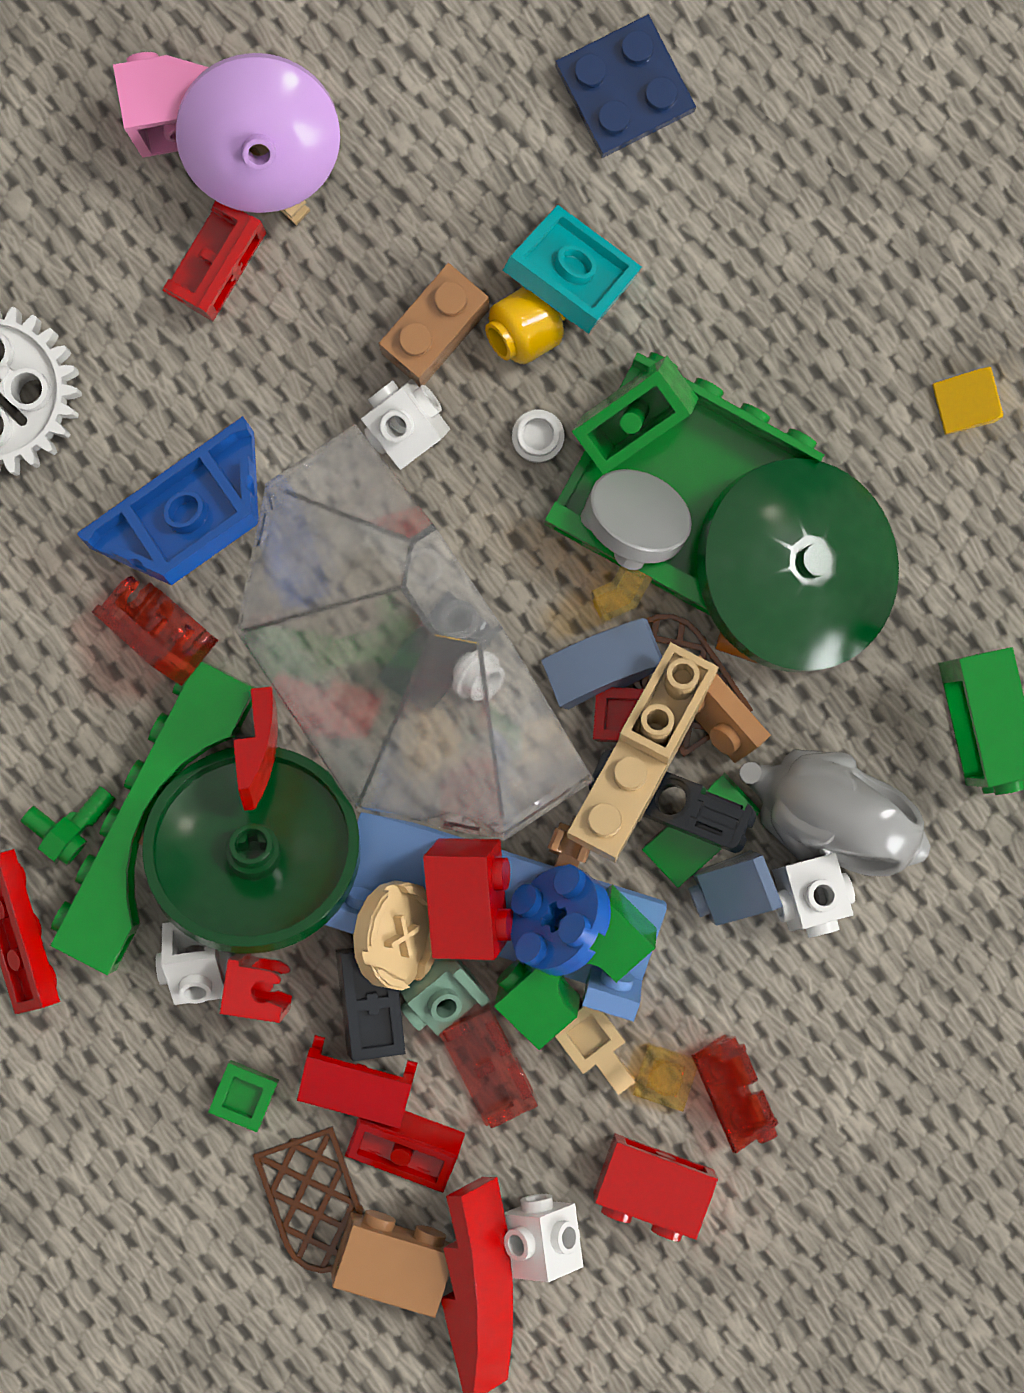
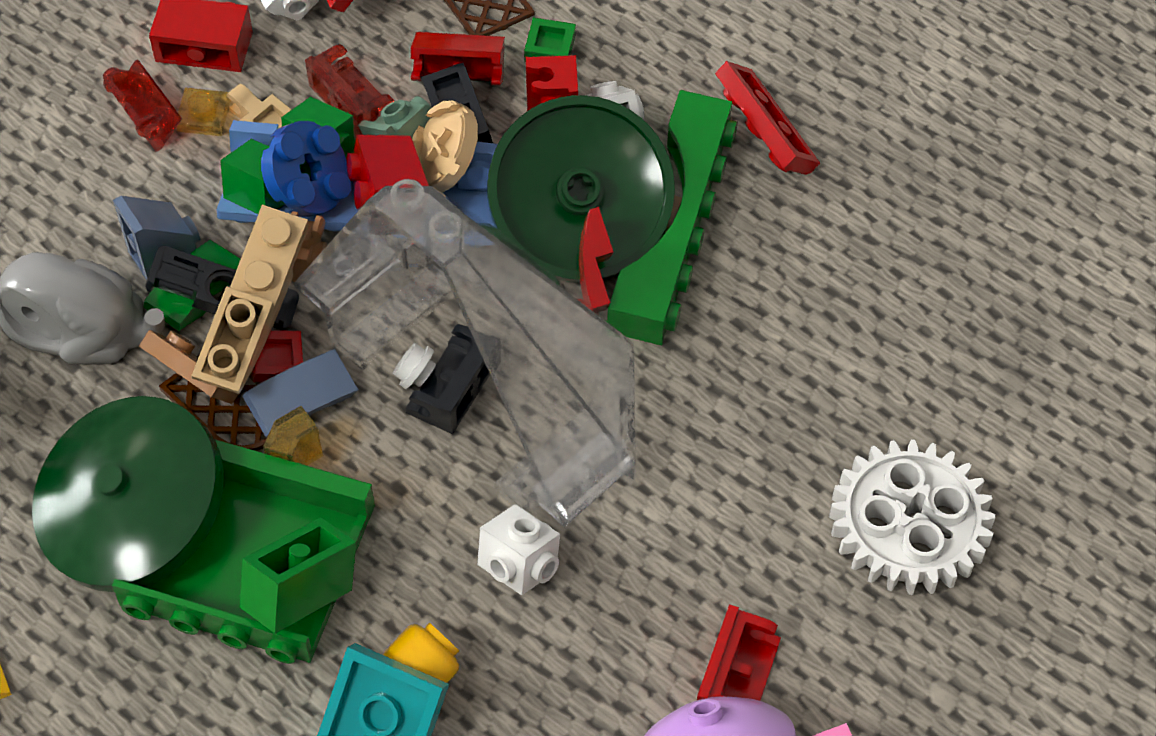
camera: 170 degrees right, 30 degrees down
(63, 839) = (746, 188): green piece -> none
(156, 629) = (707, 341): clear red hinge -> none
(184, 510) = (705, 445): blue wing -> none
(416, 1151) = (393, 33): red slope -> none
(434, 325) = (508, 642): medium nougat brick -> none
(538, 436) = (392, 574): white plate -> none
(637, 517) = (282, 493): light grey tile -> none
(813, 878) = (90, 237): white brick -> none

